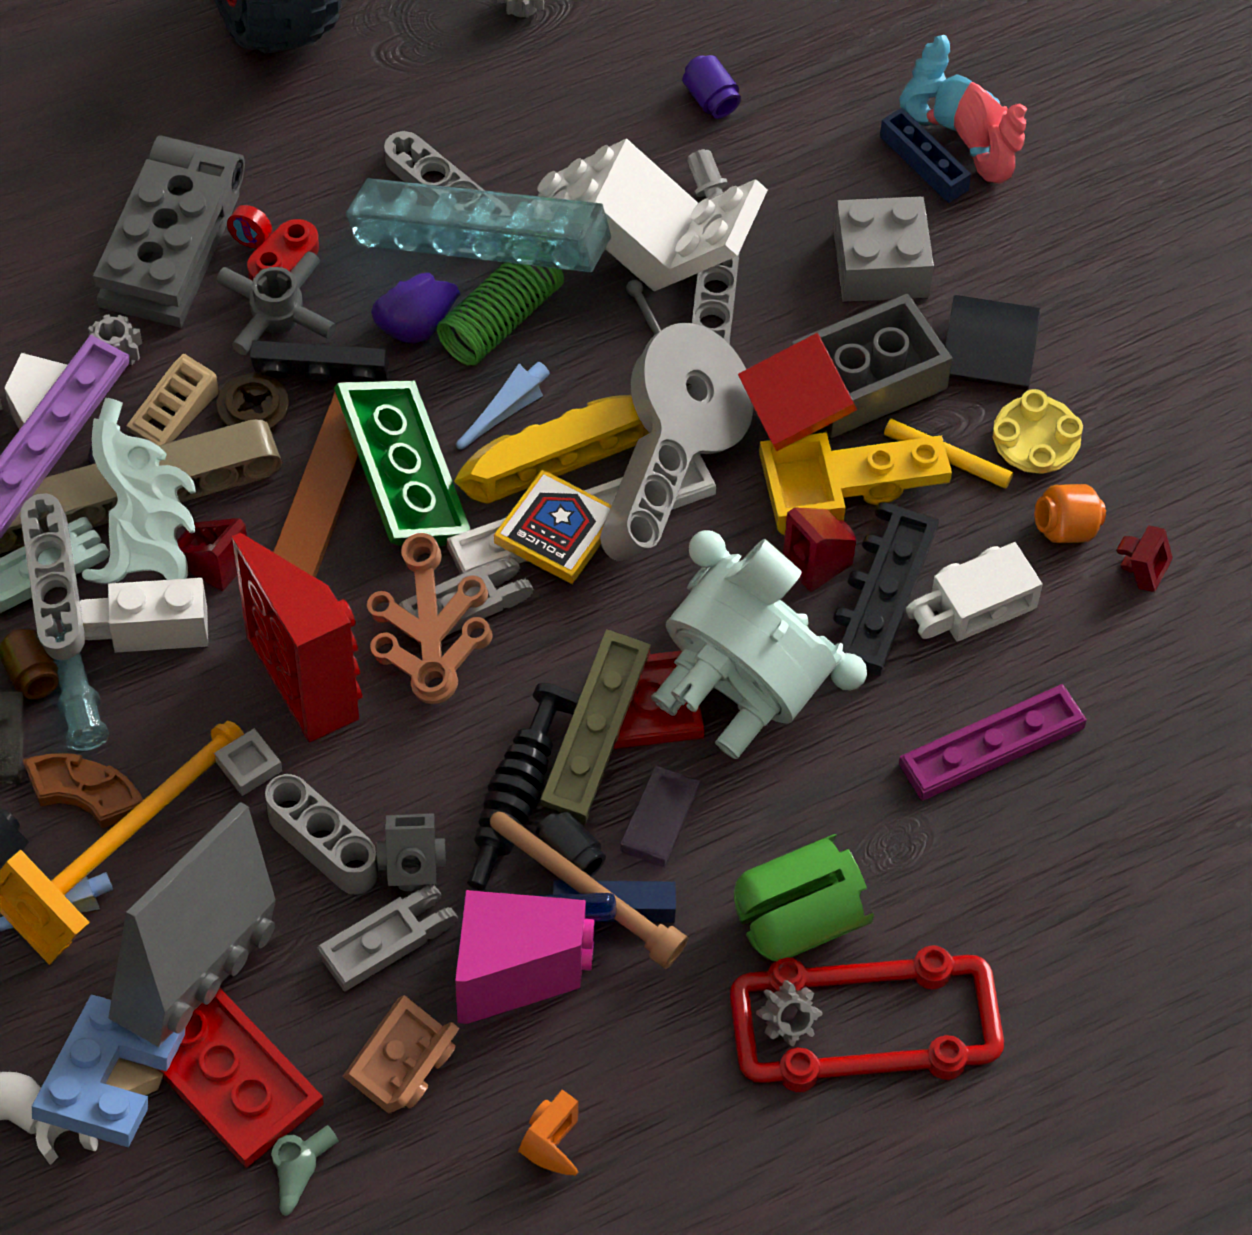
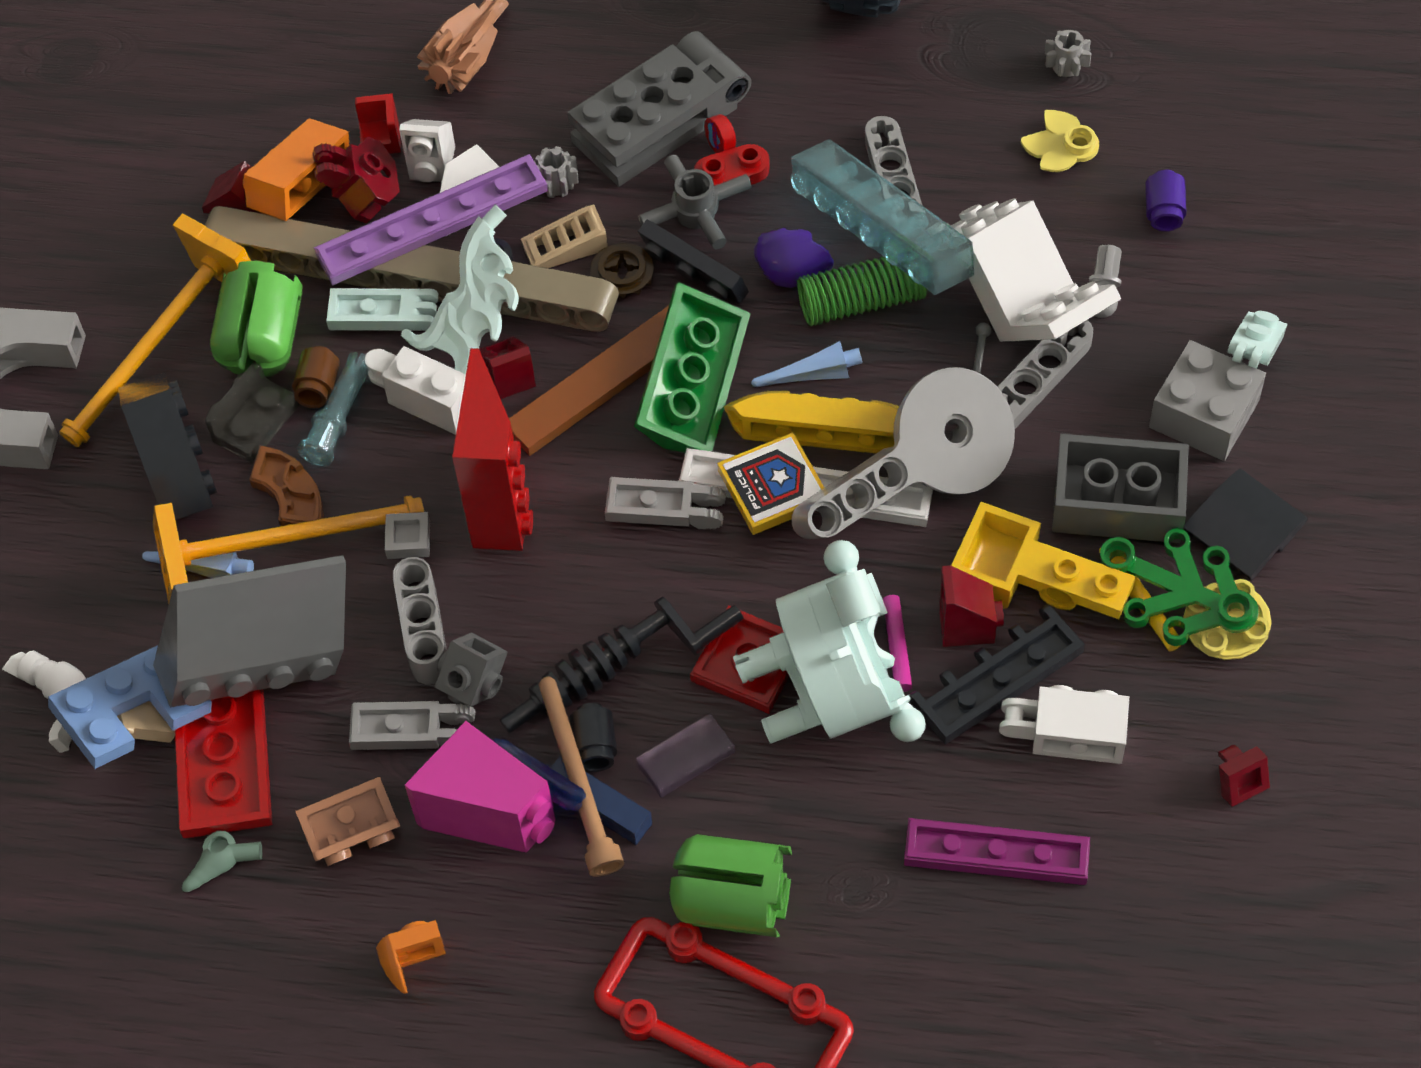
camera: 40 degrees right, 0 degrees up
(50, 576) = (366, 318): light grey beam -> none
(431, 626) = (618, 506): nougat plant -> none
(575, 78) = (1062, 142): none -> light yellow plate
(595, 725) = (678, 653): olive hinge -> none
(797, 392) = (1033, 476): red tile -> none
(800, 1023) = (645, 969): light grey gear -> none
(888, 171) = (1257, 338): none -> light aqua hinge
(925, 155) = (1306, 343): dark blue piece -> none
(965, 109) = (1367, 322): hair -> none
(988, 423) = (1183, 589): none -> green plant
(1069, 513) = (1202, 700): orange head -> none

